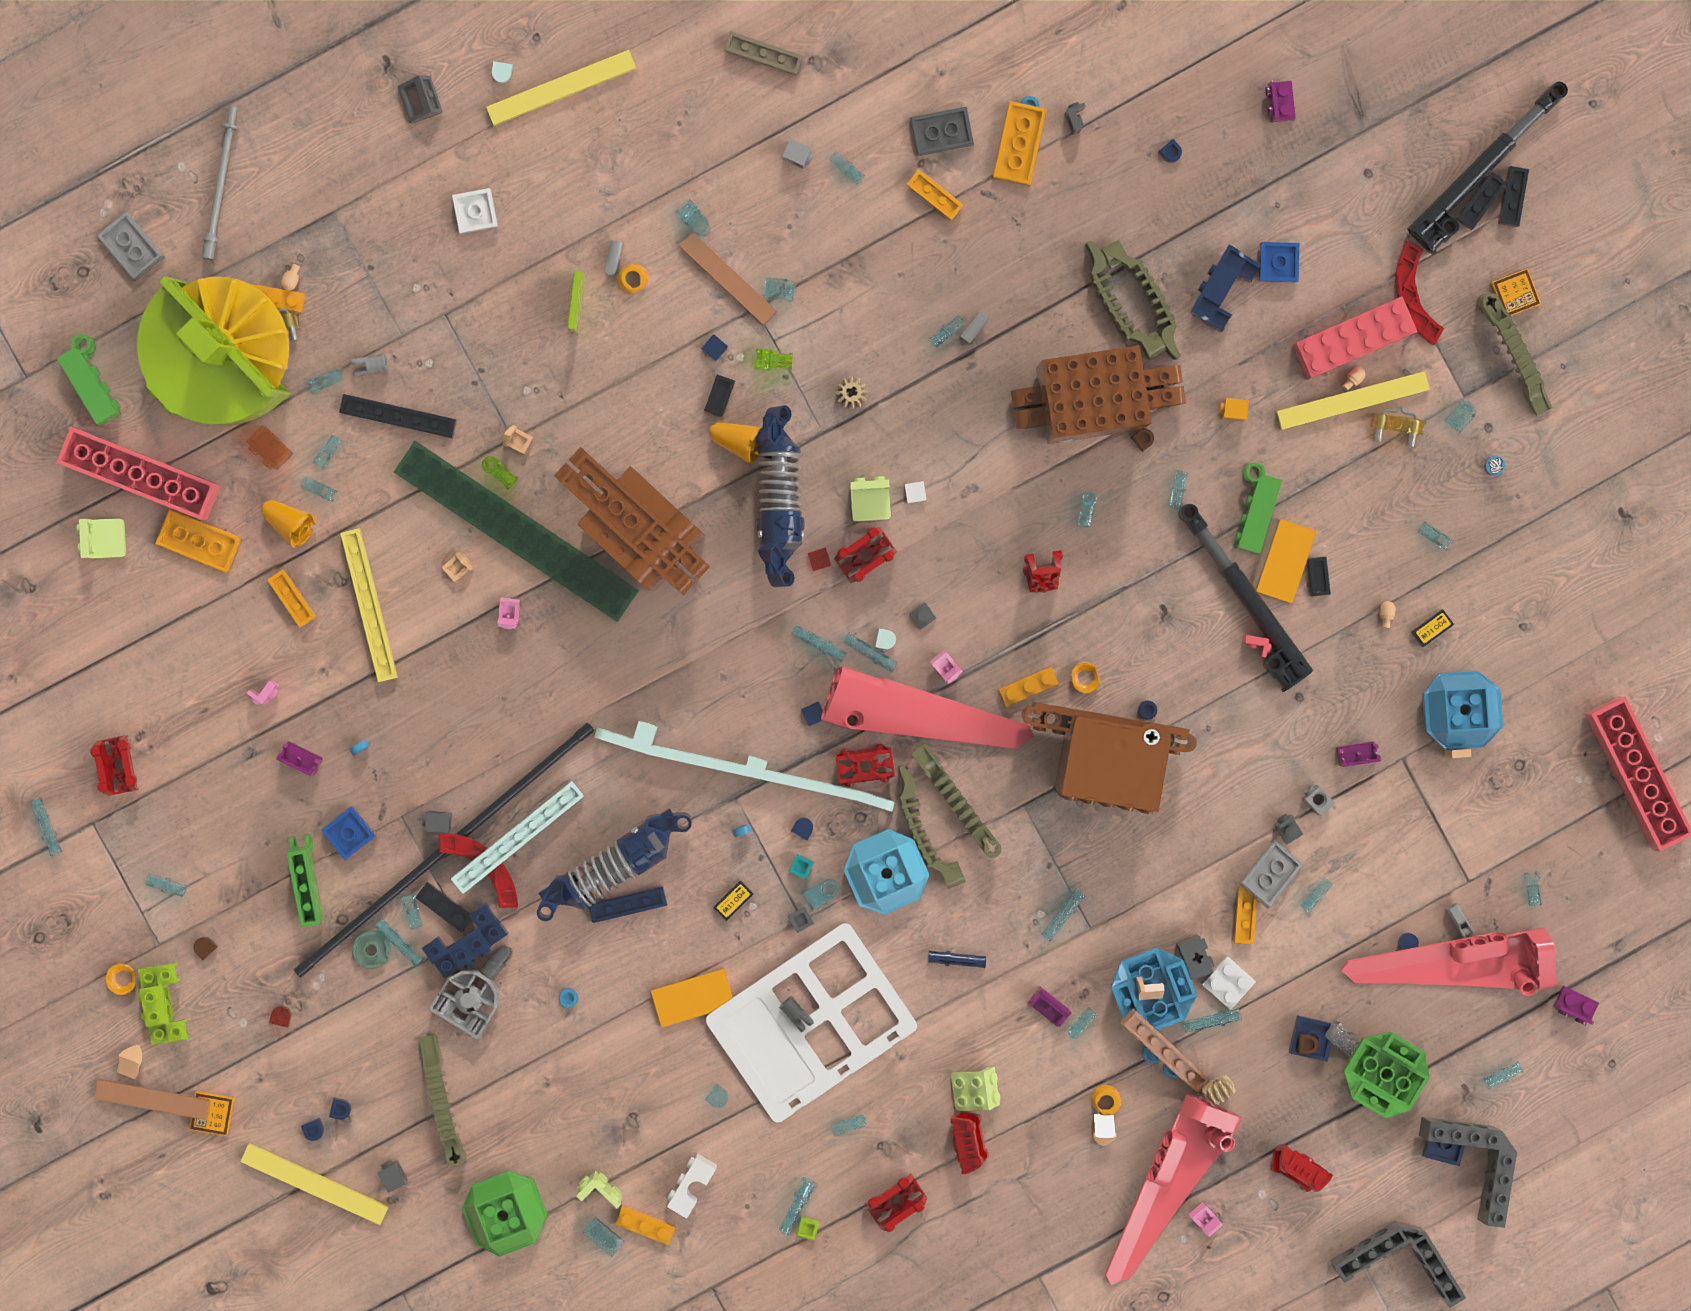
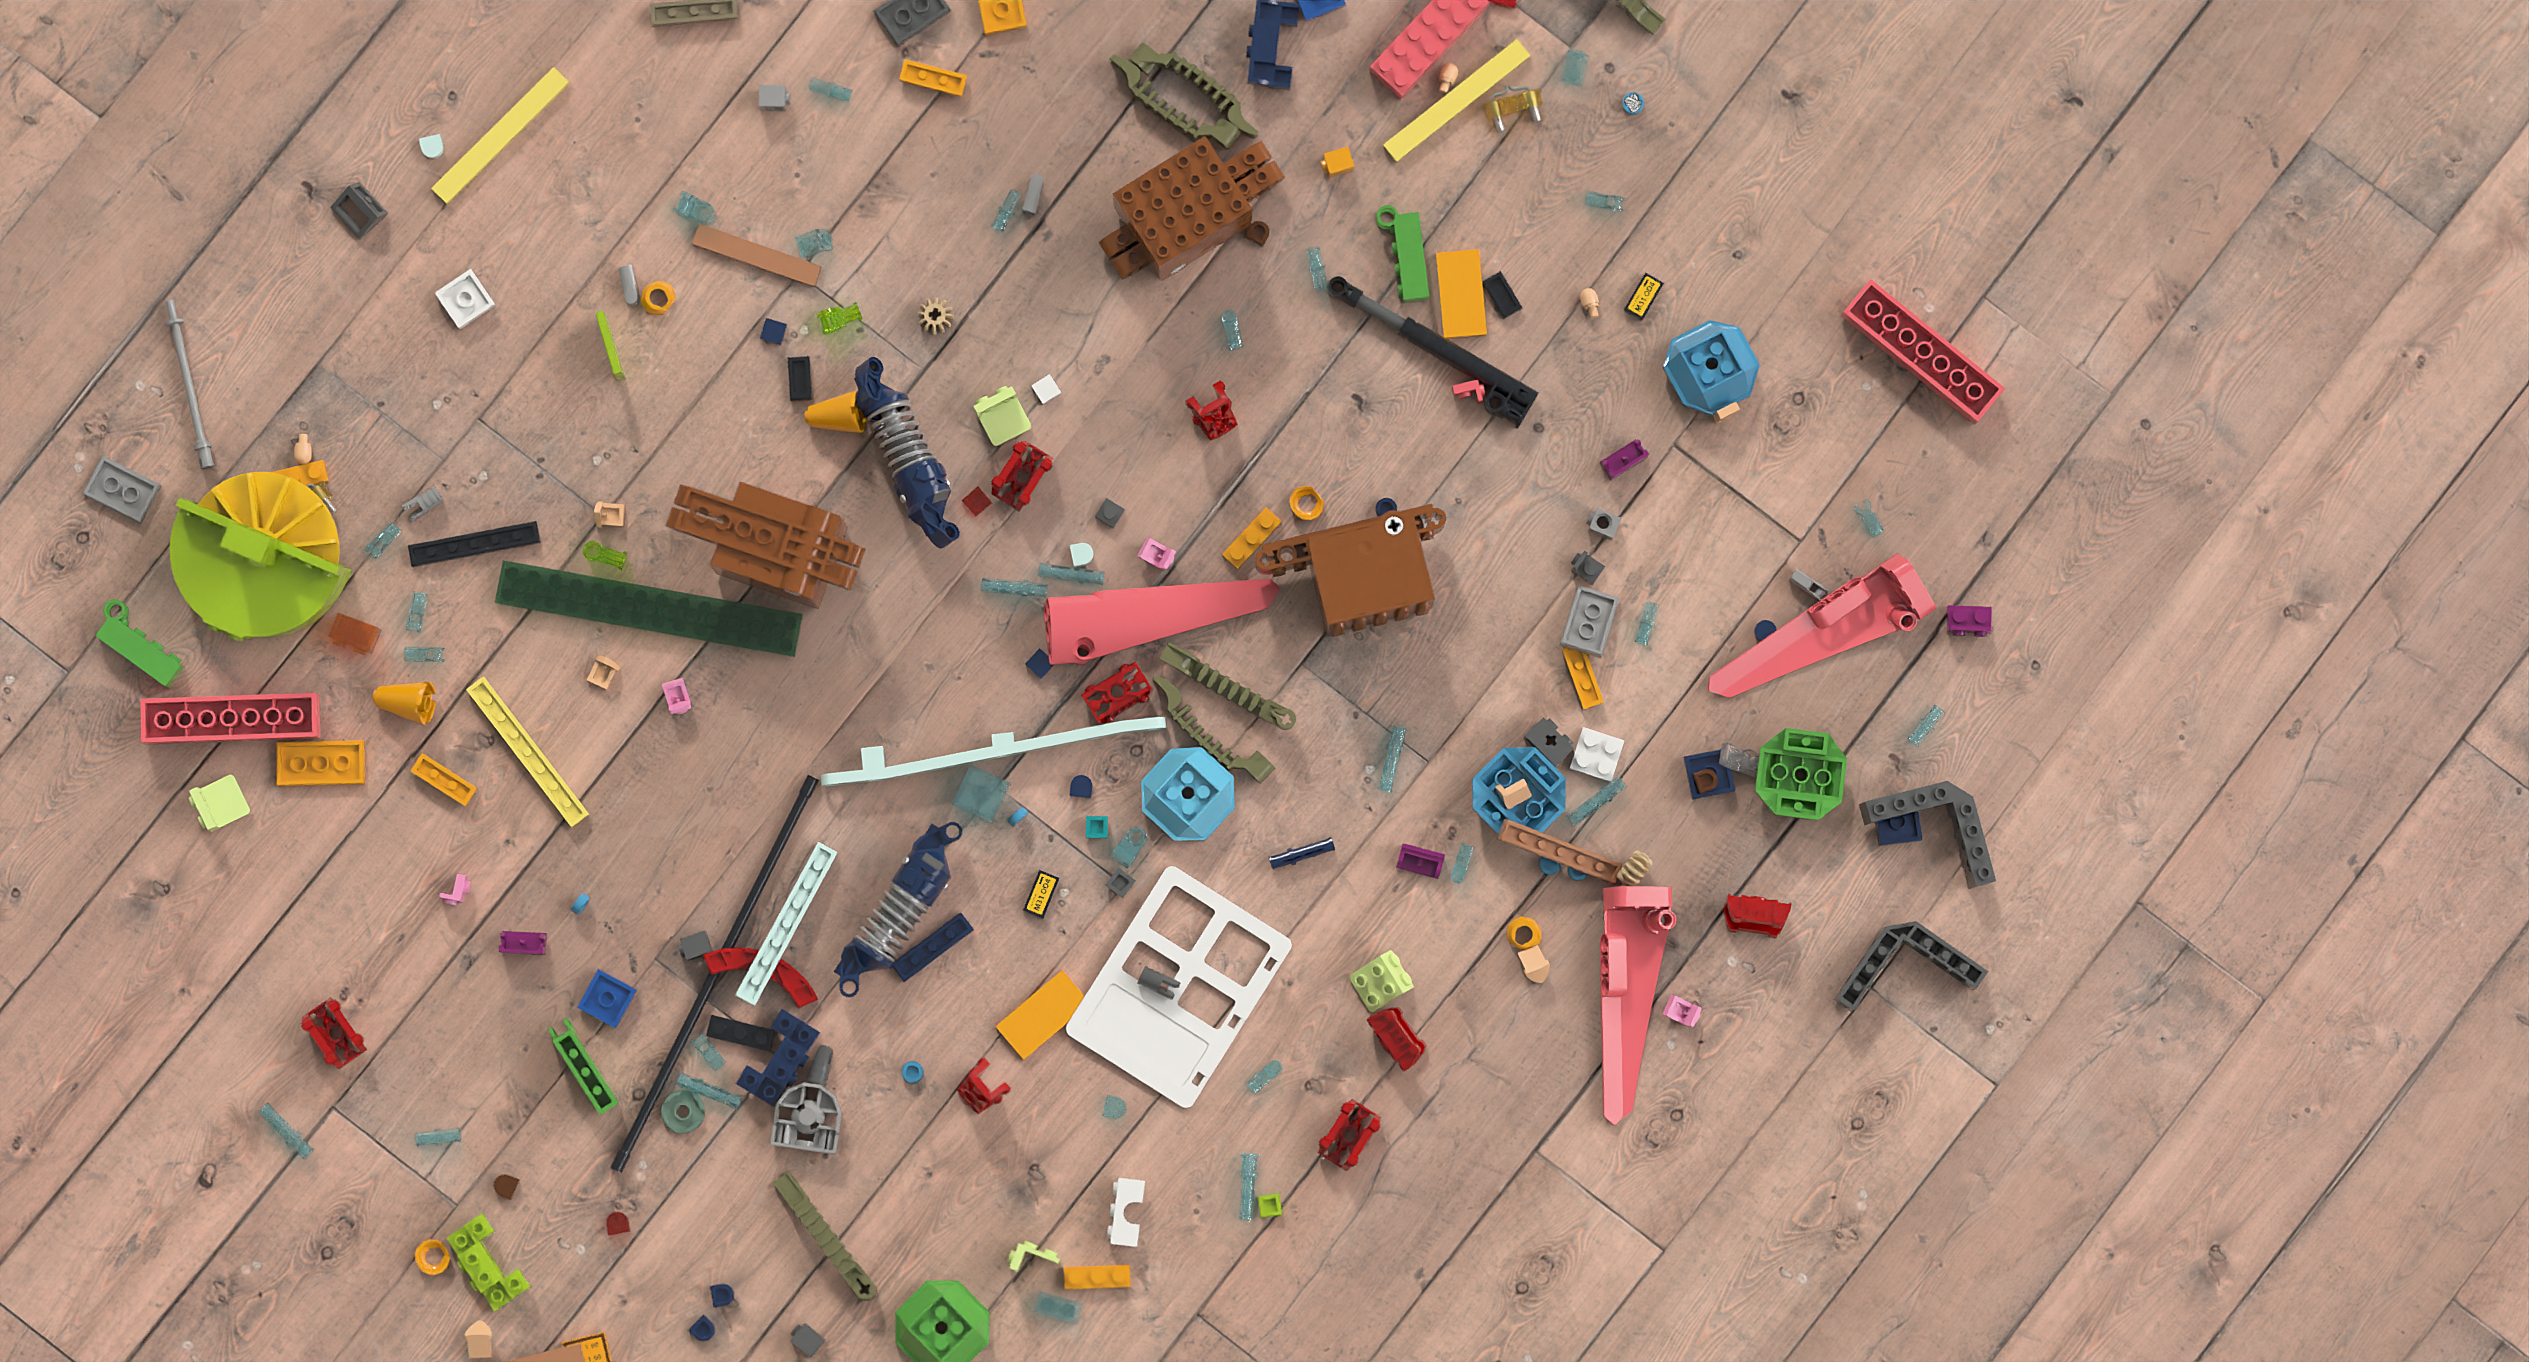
camera: 30 degrees left, 5 degrees down
(610, 1041) = (976, 1093): none -> red piece
(720, 800) = (981, 794): none -> clear light blue brick

